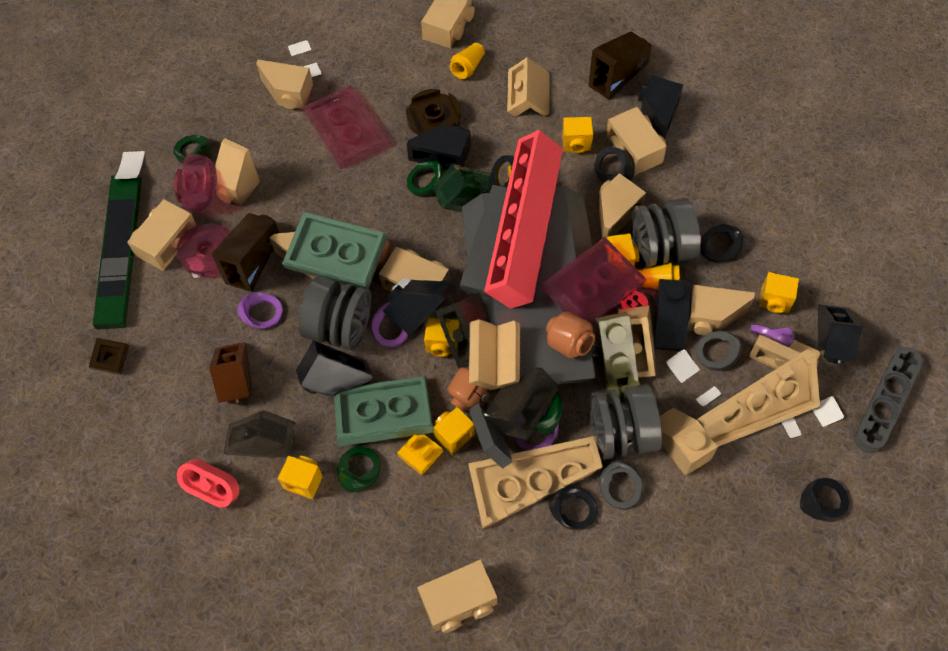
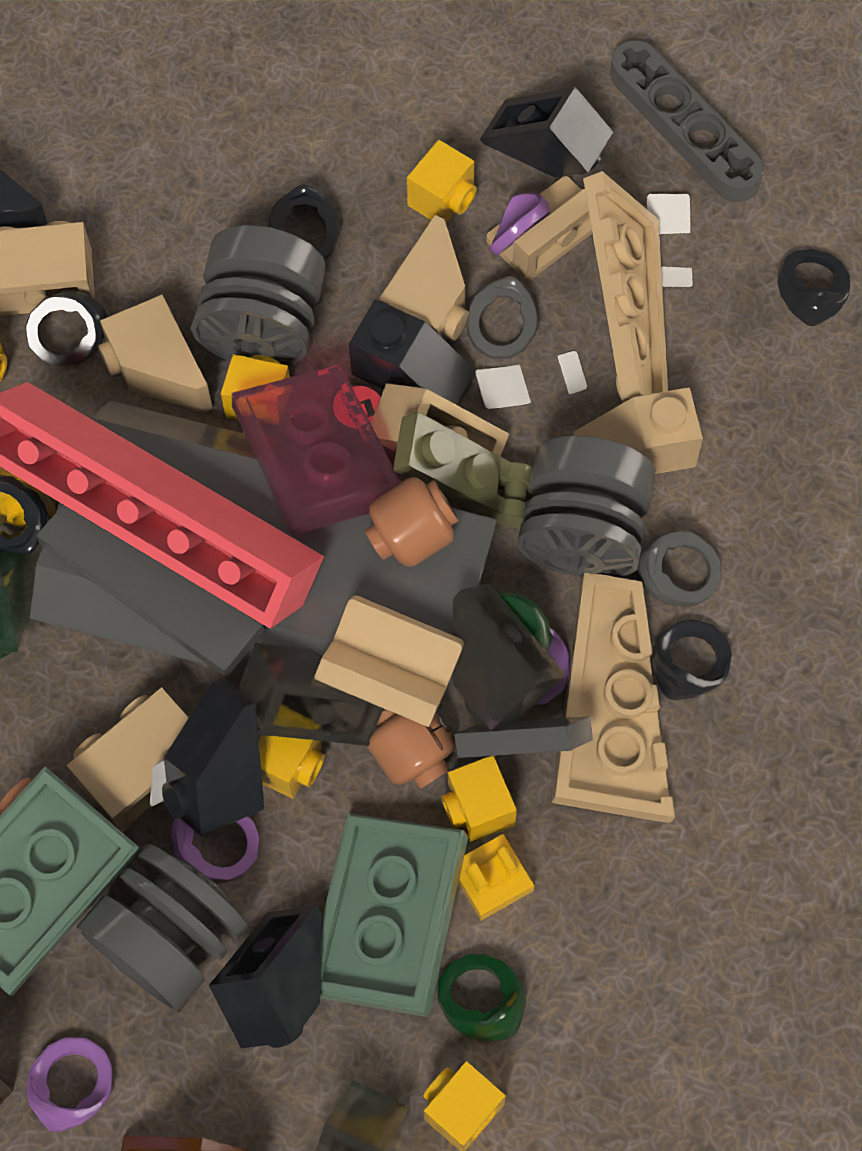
camera: 70 degrees left, 5 degrees up
(458, 597) = (787, 901): tan brick -> none
(655, 273) = (329, 340): yellow cone -> none

